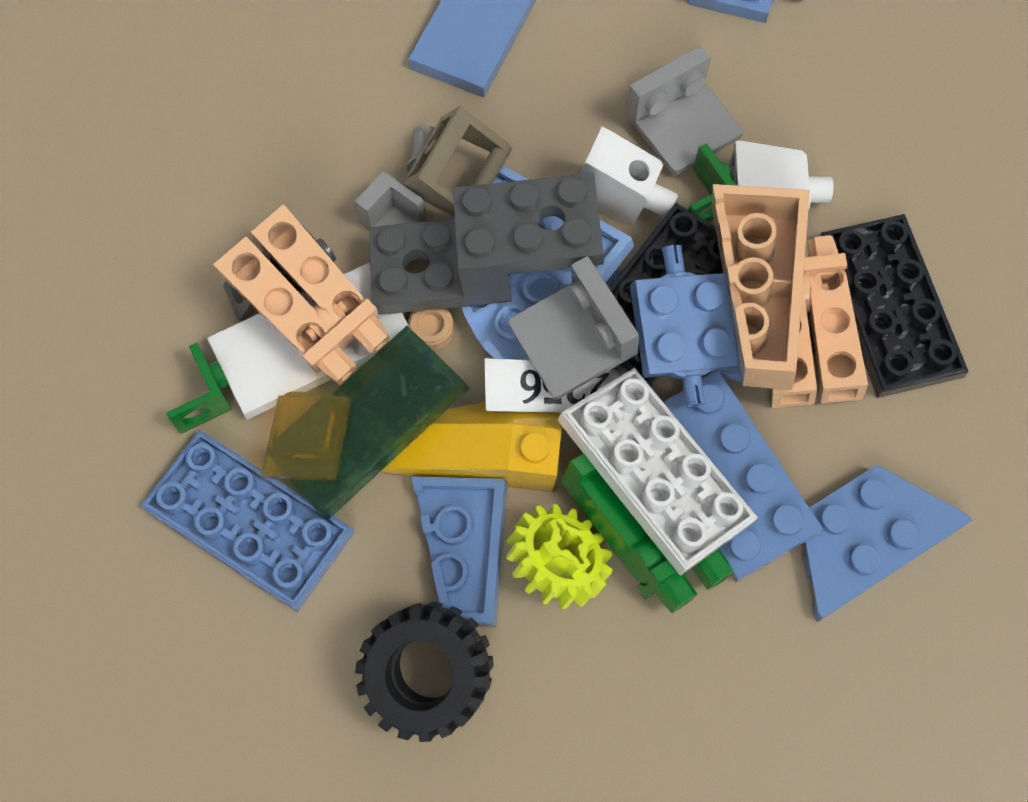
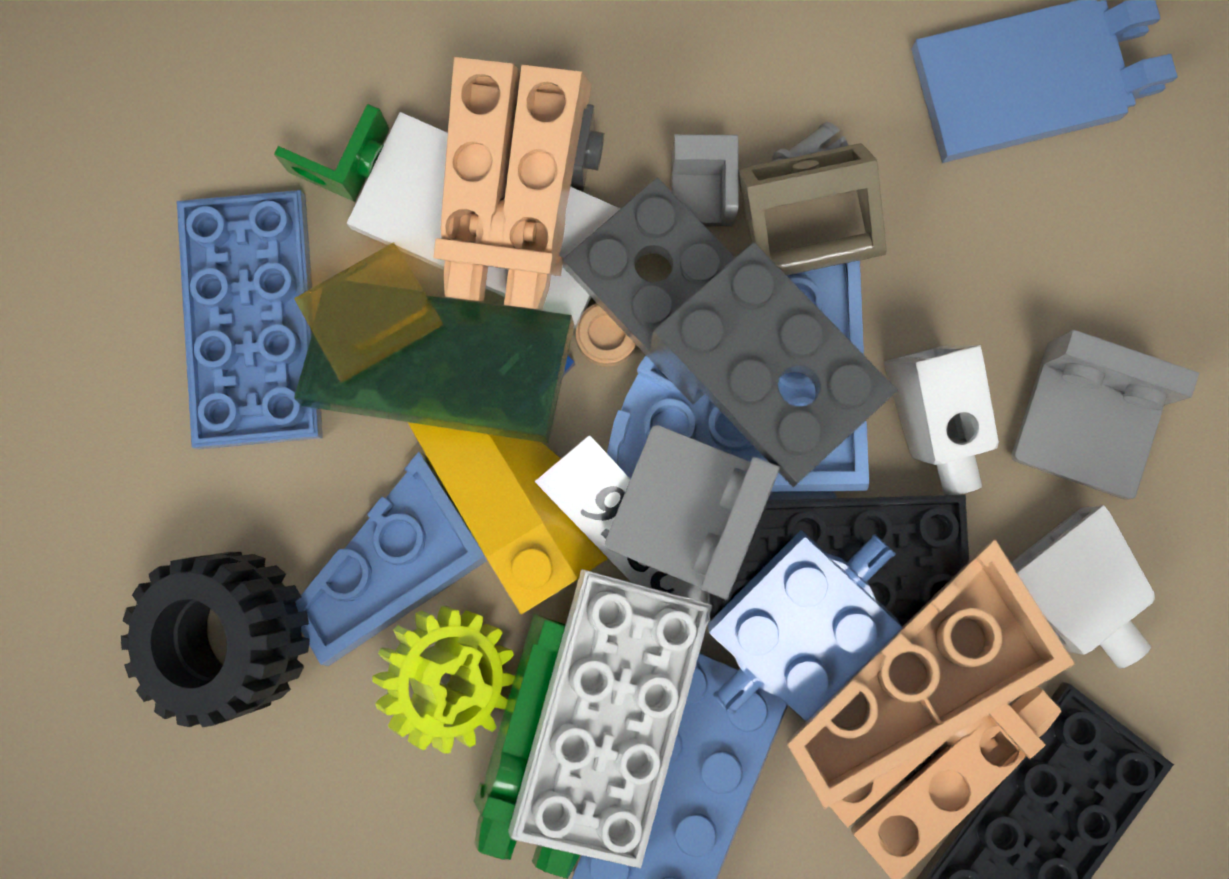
camera: 50 degrees right, 15 degrees up
(710, 172) = (1040, 520): green bracket -> none

